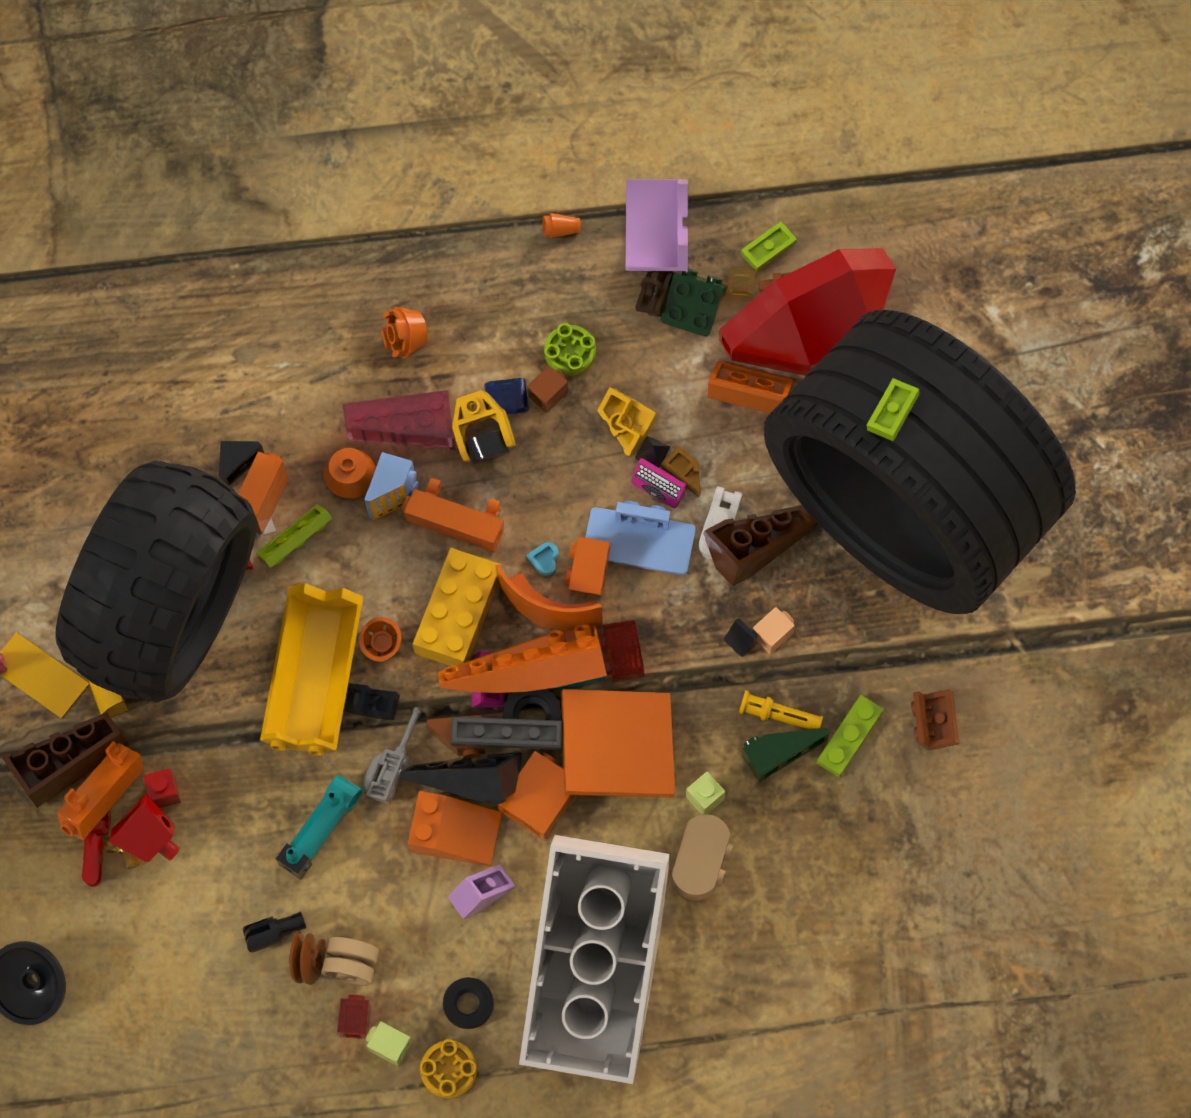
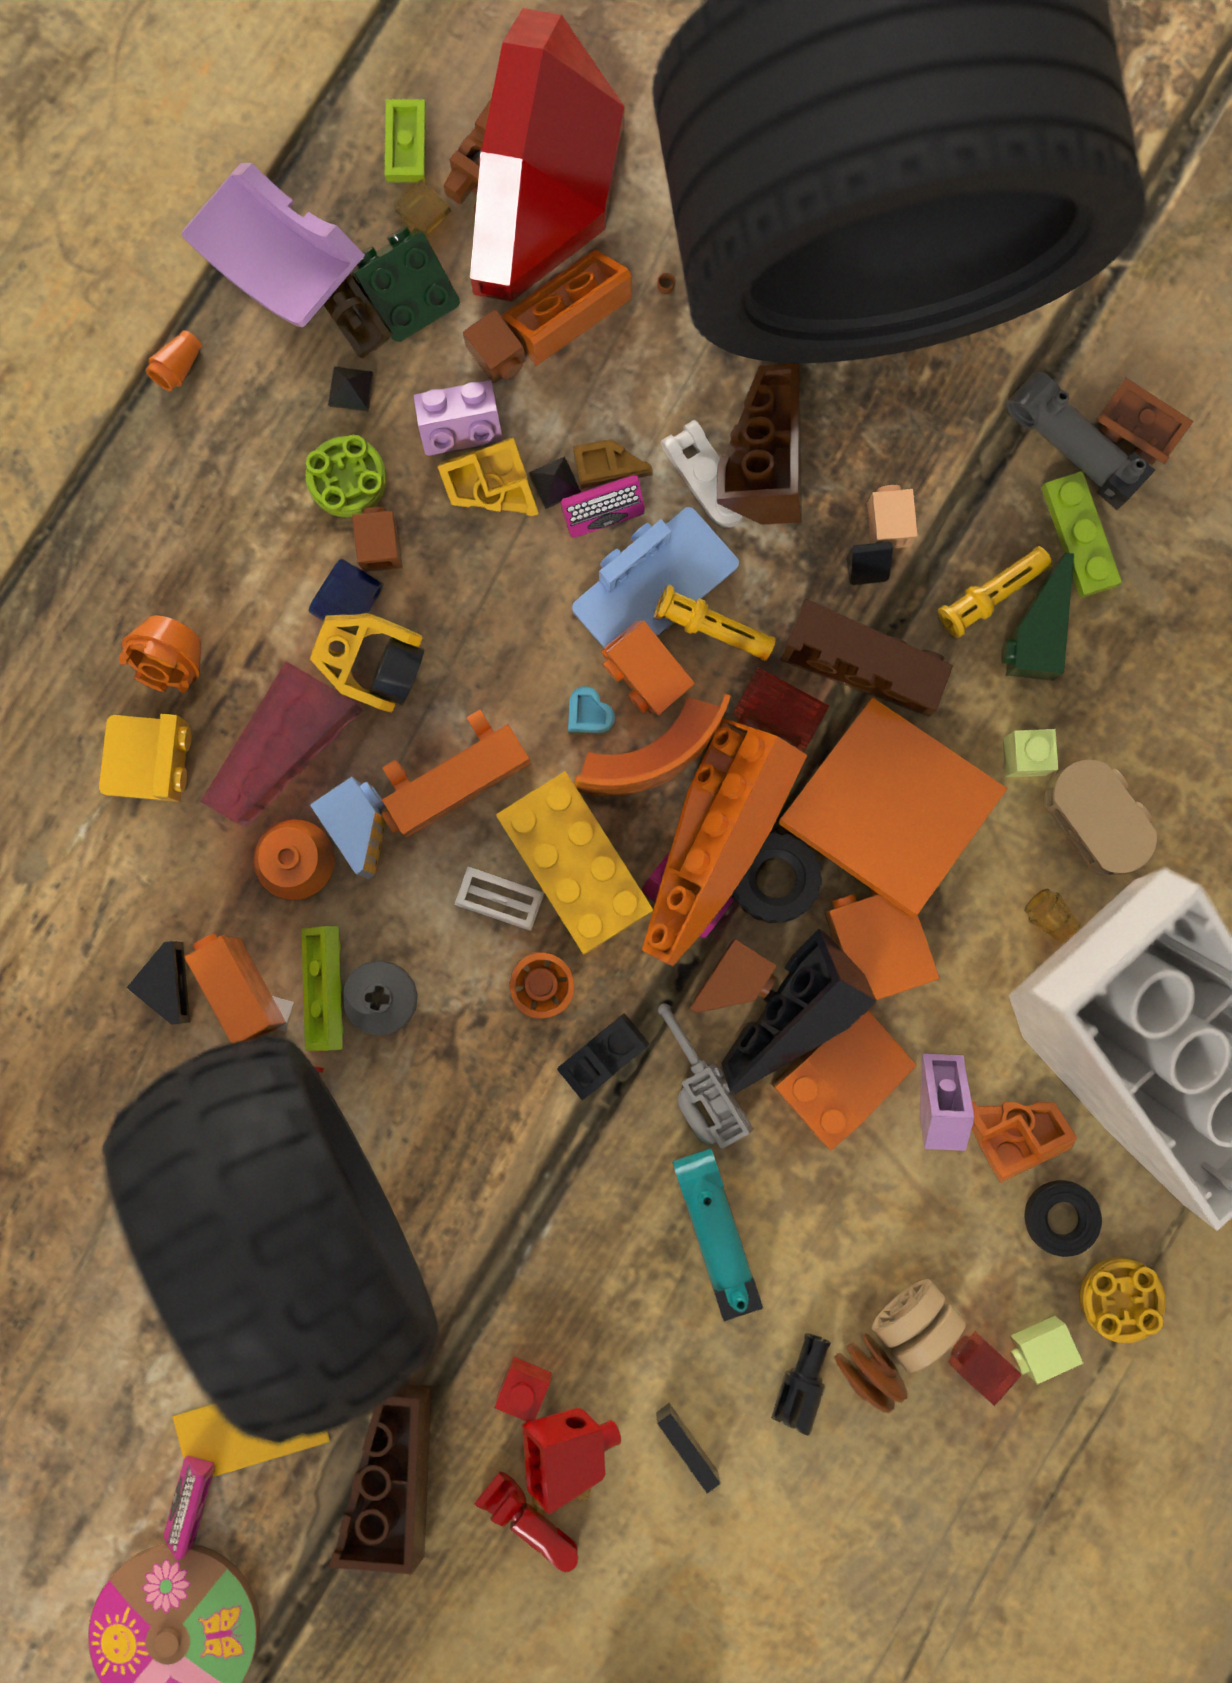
camera: 55 degrees left, 15 degrees up
(99, 791) = (472, 1477): orange brick -> none
(194, 895) = (688, 1448): none -> black tile
(311, 554) = (370, 979): none -> dark grey piece
(311, 669) = (514, 1096): yellow panel -> none
(345, 364) = (145, 757): none -> yellow bracket
(417, 609) = (532, 909): none -> white tile
(495, 947) = (1020, 1135): none -> orange slope
(506, 733) = (783, 928): dark grey tile -> none
(618, 318) = (350, 388): none -> black slope
(637, 571) = (697, 617): none -> yellow pin
(645, 379) = (458, 417): none -> lavender bracket
(684, 670) = (866, 659): none -> reddish brown wedge
(696, 369) = (495, 347): none -> dark orange brick
(893, 409) = (903, 82): lime plate -> none
(898, 694) = (1045, 407): none -> dark grey piece

